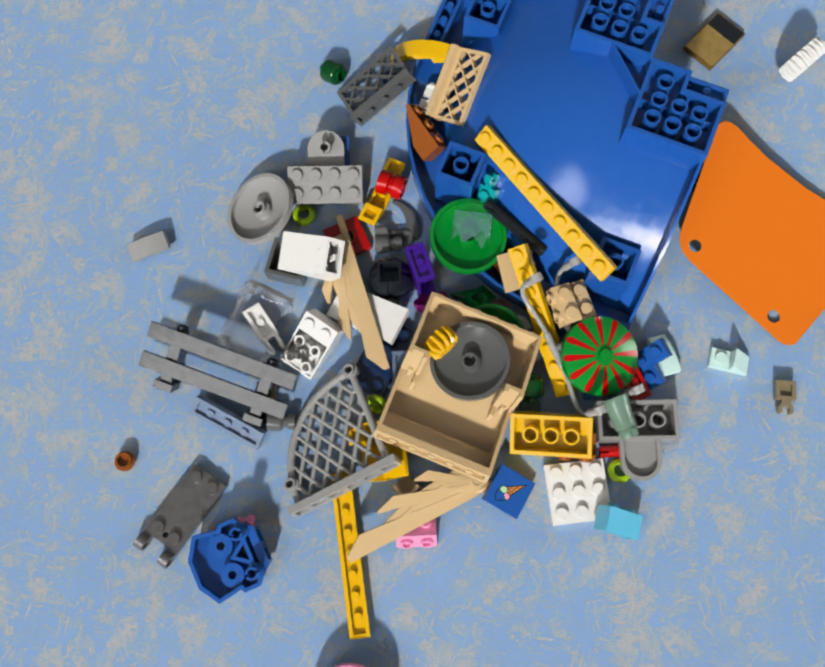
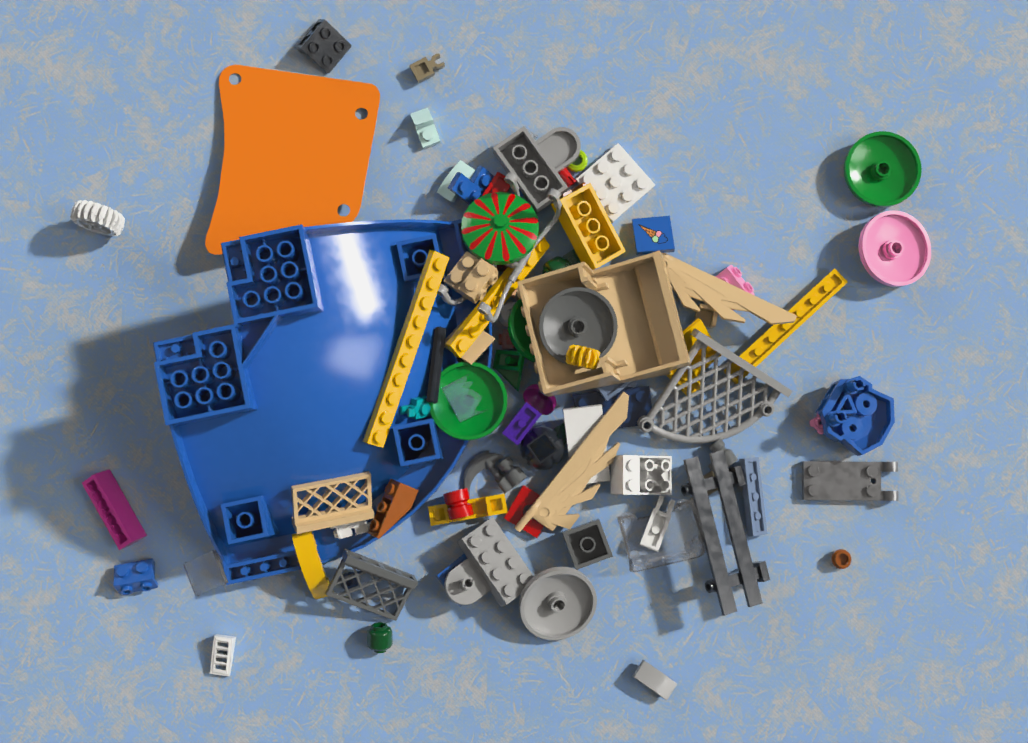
camera: 130 degrees left, 10 degrees up
(307, 221) = (538, 558): lime piece -> none
(311, 255) = (574, 522): white slope -> none
(376, 403) = (655, 386): lime piece -> none
(618, 521) = (620, 136): medium azure brick -> none
(622, 416) = (539, 180): sand green plant -> none
(713, 41) = (119, 311): tile -> none

